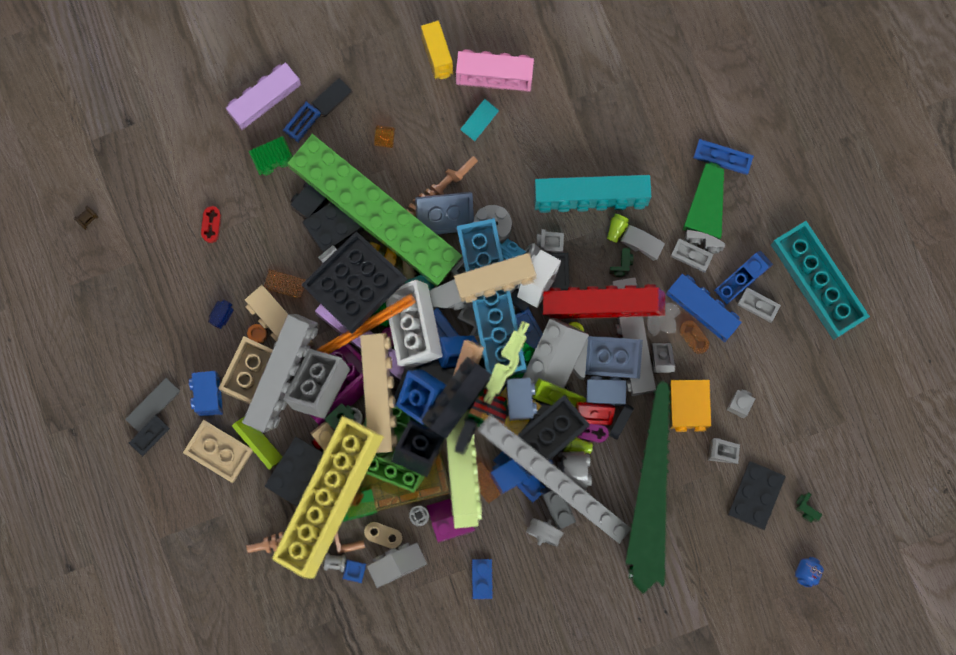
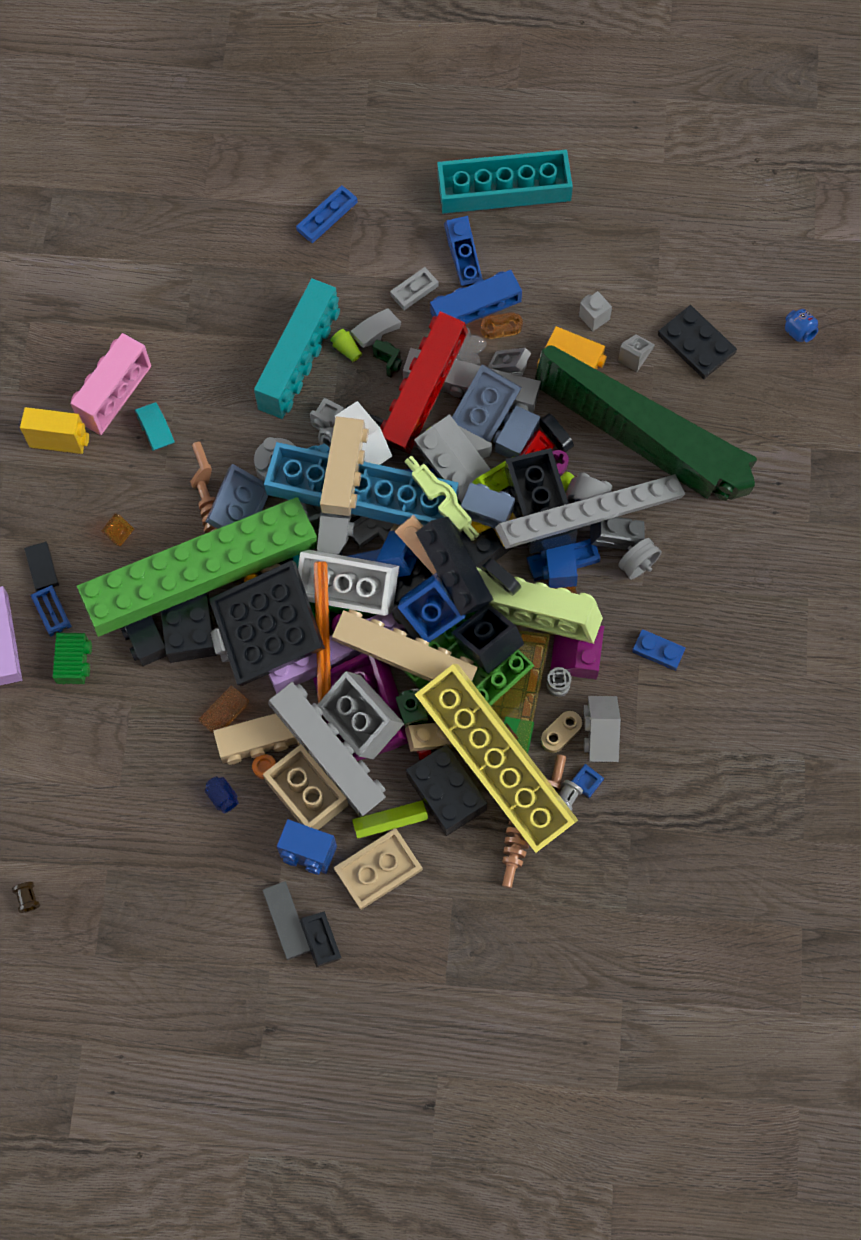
camera: 60 degrees left, 10 degrees down
(215, 225) = (109, 765): red beam -> none
(481, 410) = (485, 546): torso -> none
(707, 204) = (369, 250): green slope -> none
(711, 243) = (406, 267): light grey slope -> none
(759, 305) = (499, 250): light grey plate -> none
(808, 512) = (736, 300): dark green bracket -> none

